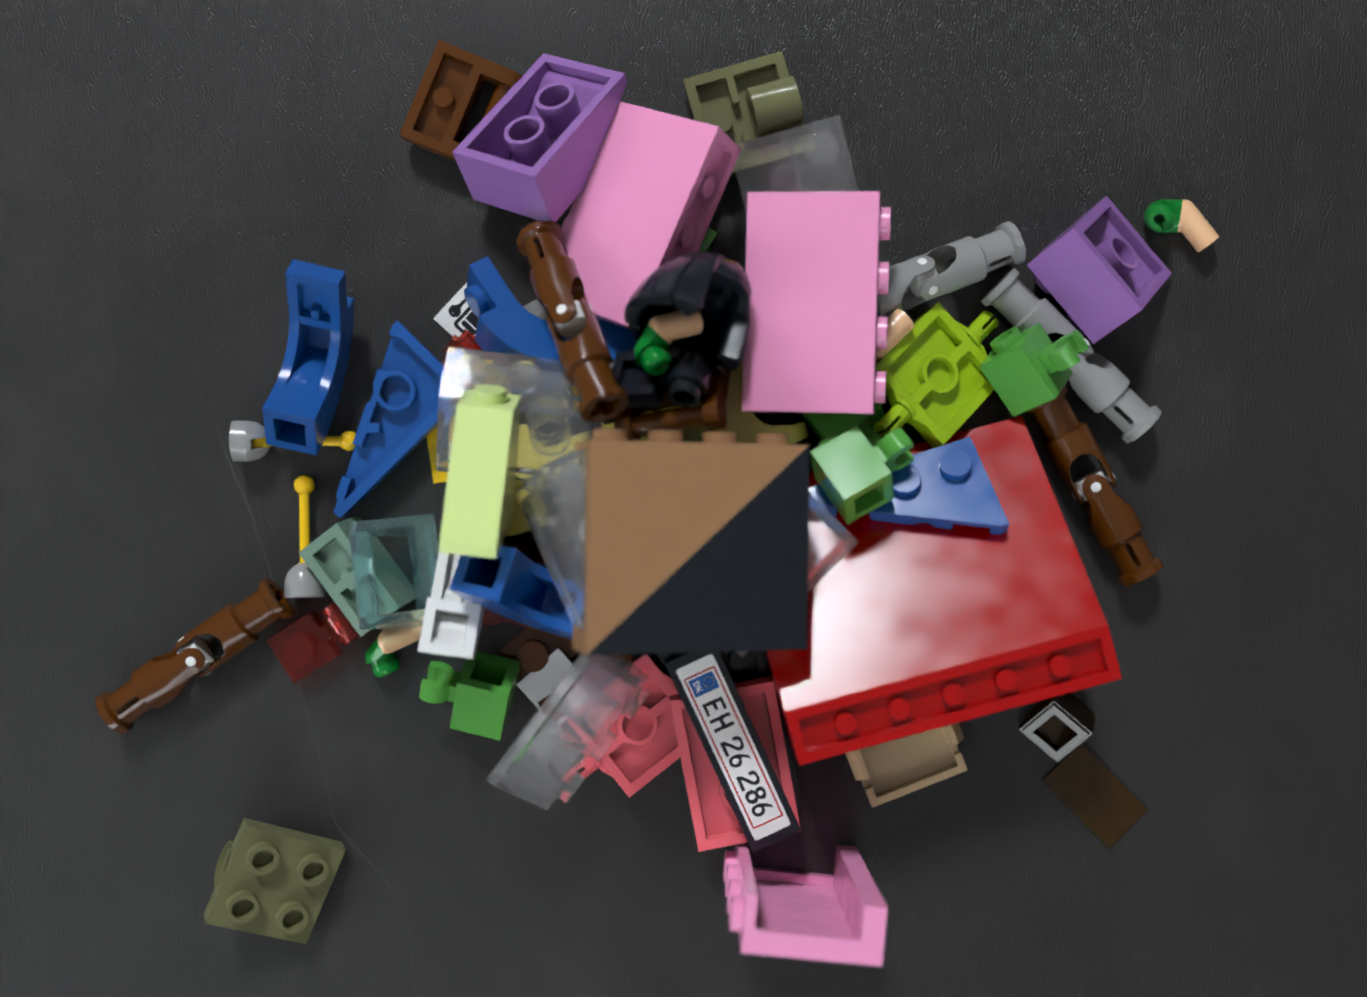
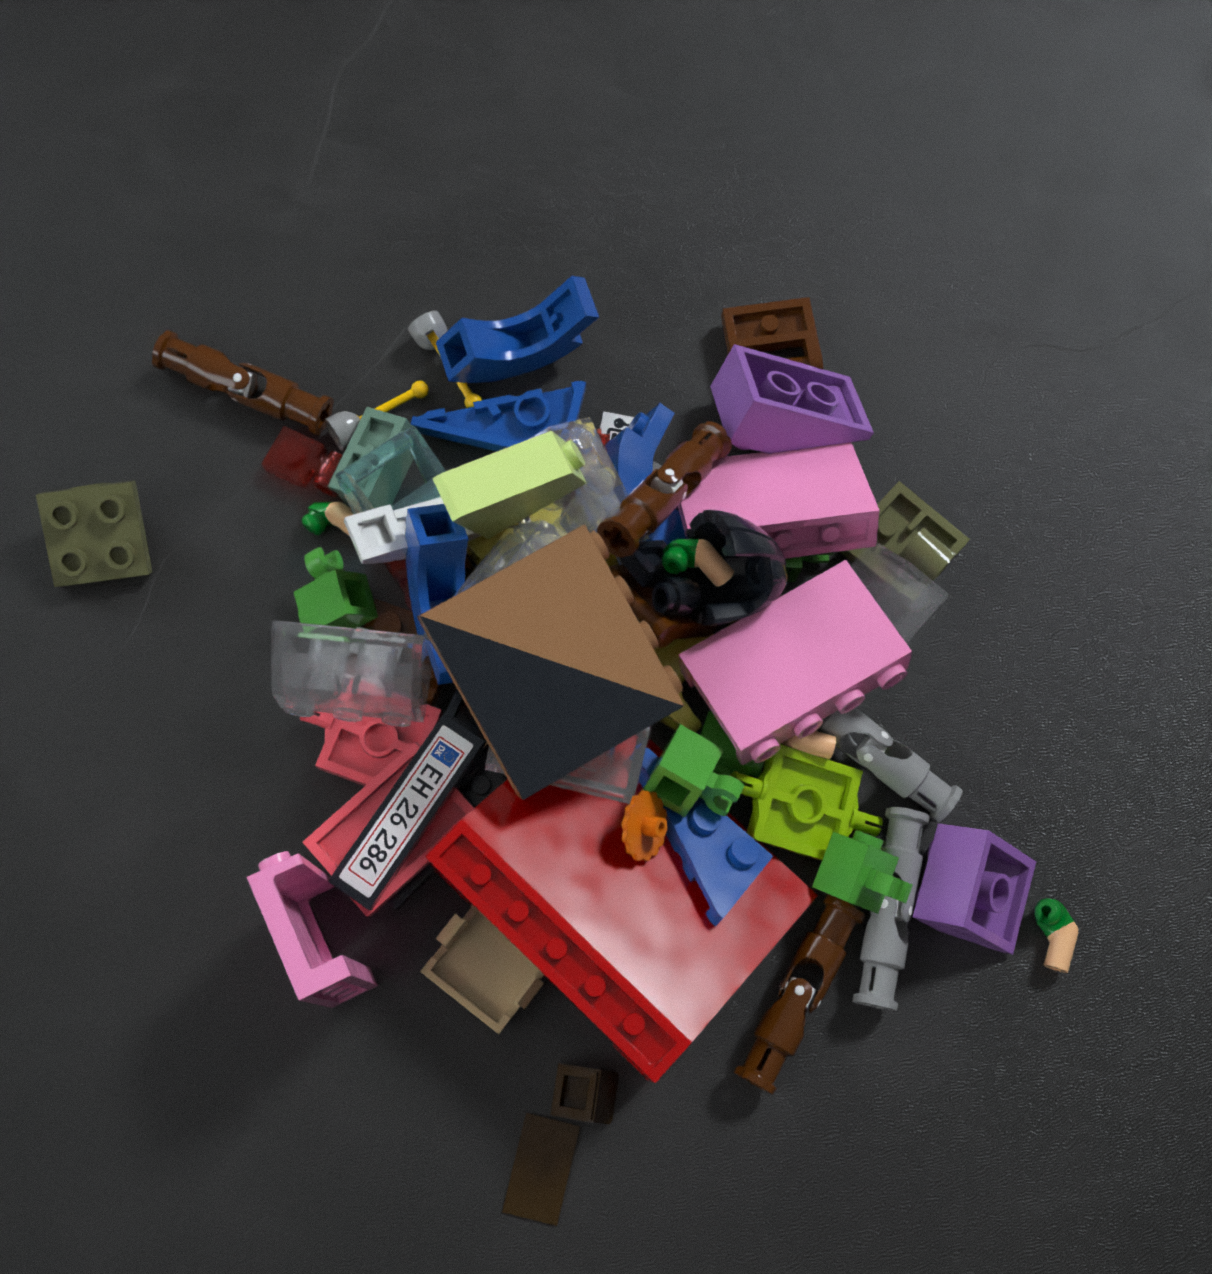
camera: 50 degrees right, 15 degrees down
(883, 543) = (644, 825): none -> orange piece

